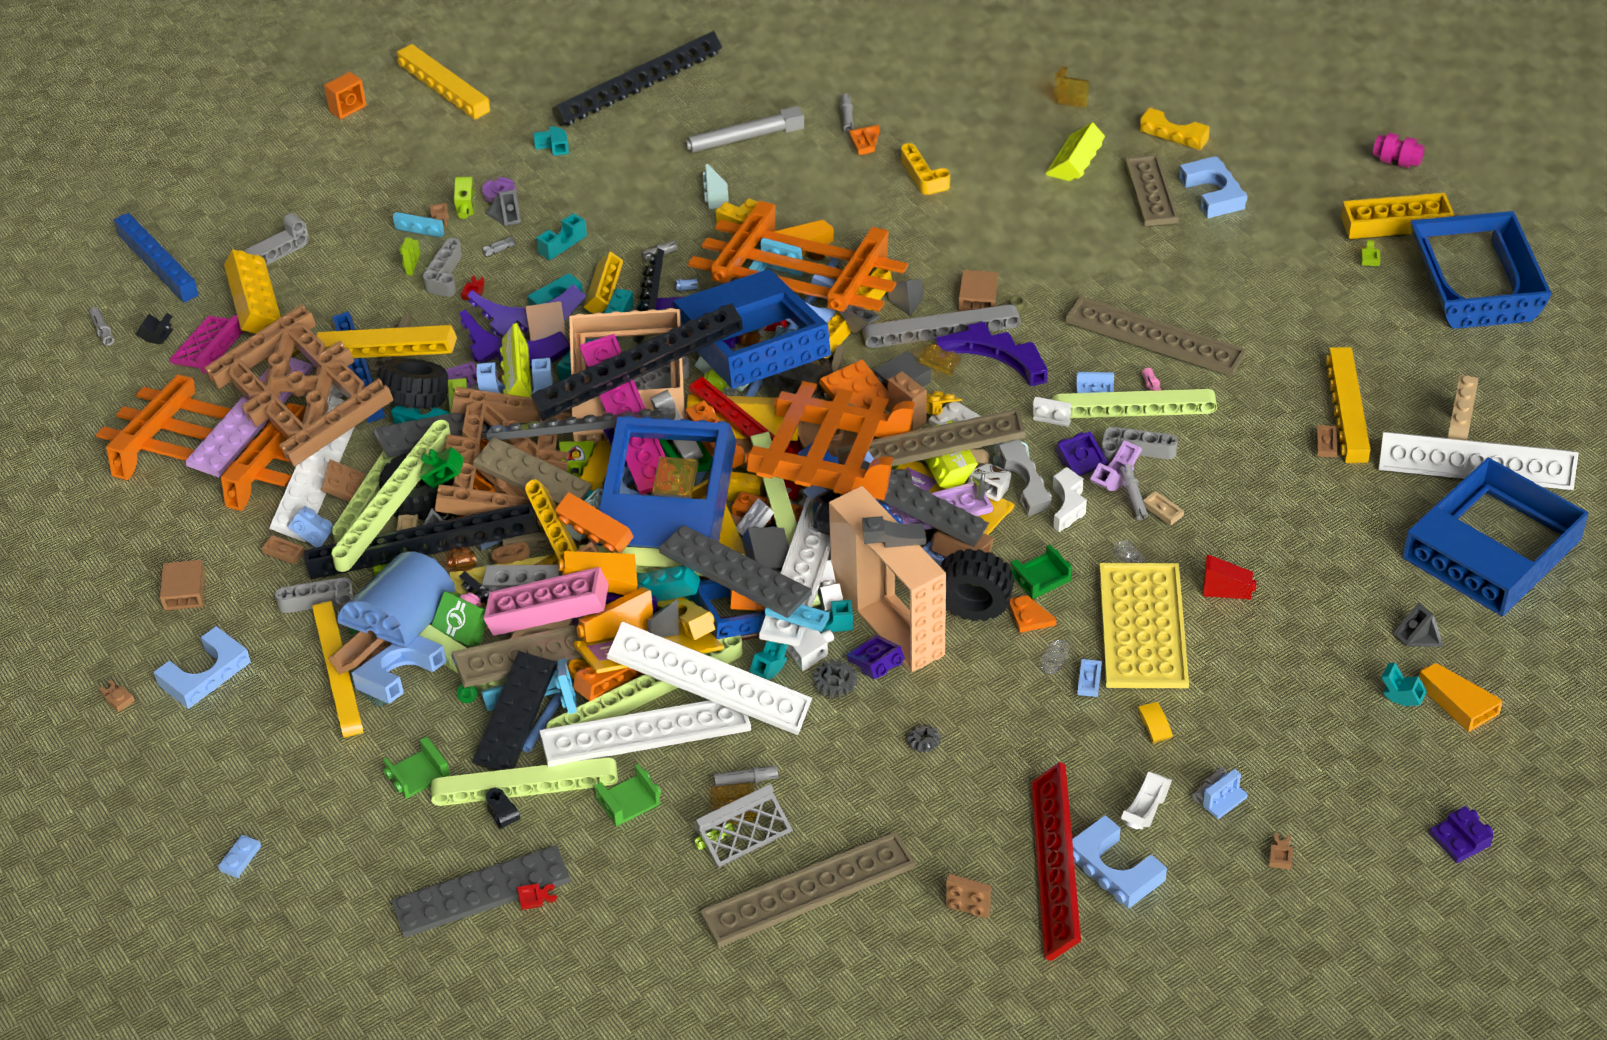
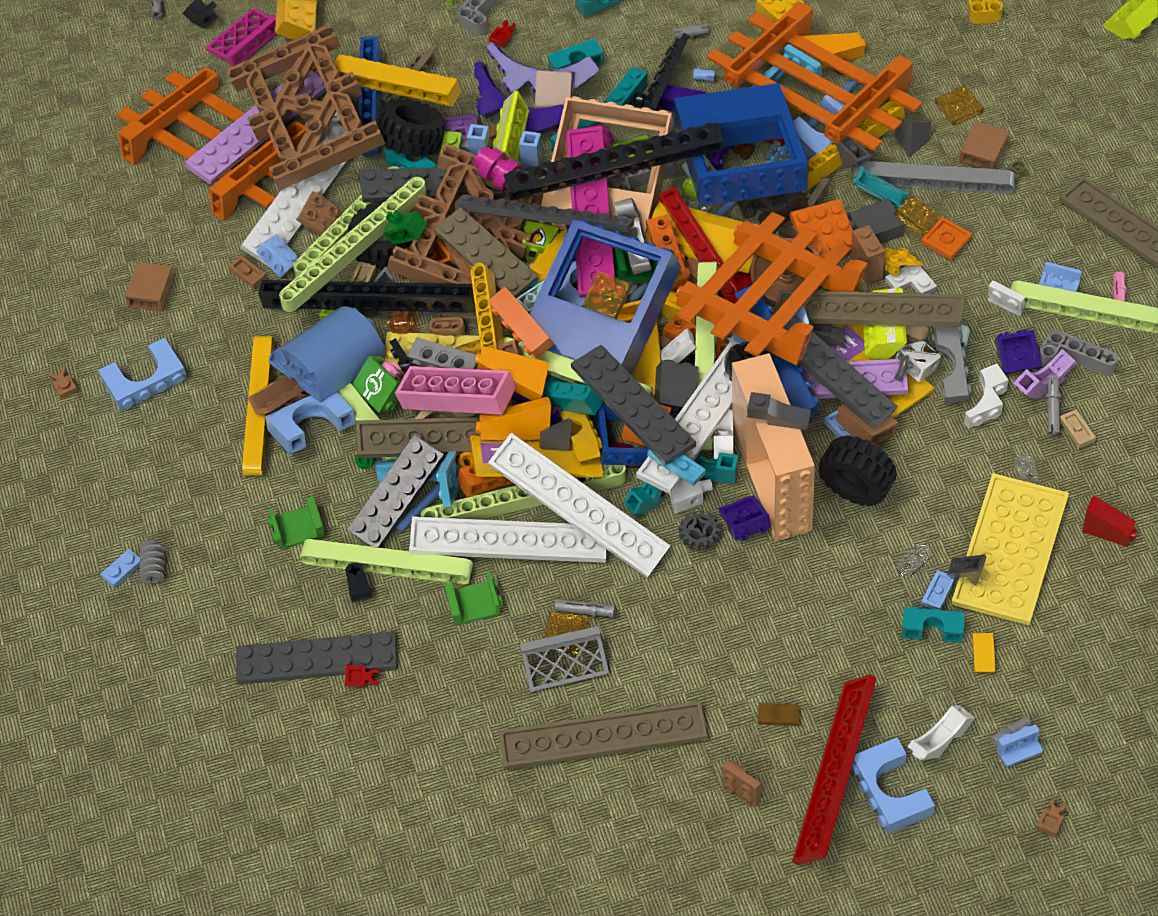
camera: 20 degrees right, 10 degrees up
(272, 840) = (151, 562): none -> light grey piece
(305, 595) = (250, 324): light grey beam -> none
(512, 395) = (493, 165): none -> dark pink piece
(603, 283) = (624, 57): yellow brick -> none
(712, 835) = (533, 660): lime axle -> none
(894, 343) = (879, 188): none -> teal container
(928, 743) = (761, 619): dark grey gear -> none
(940, 263) = (959, 105): none -> clear yellow plate
(974, 374) = (946, 238): none -> orange plate
(977, 826) = (778, 714): none -> pearl gold tile
(979, 341) = (964, 203): dark purple arch -> none
(1029, 614) = (906, 509): orange wing -> none
(1042, 573) = (934, 469): green panel -> none
(1112, 646) = (967, 567): none -> flat silver slope
(1112, 703) = (948, 622): none -> teal arch

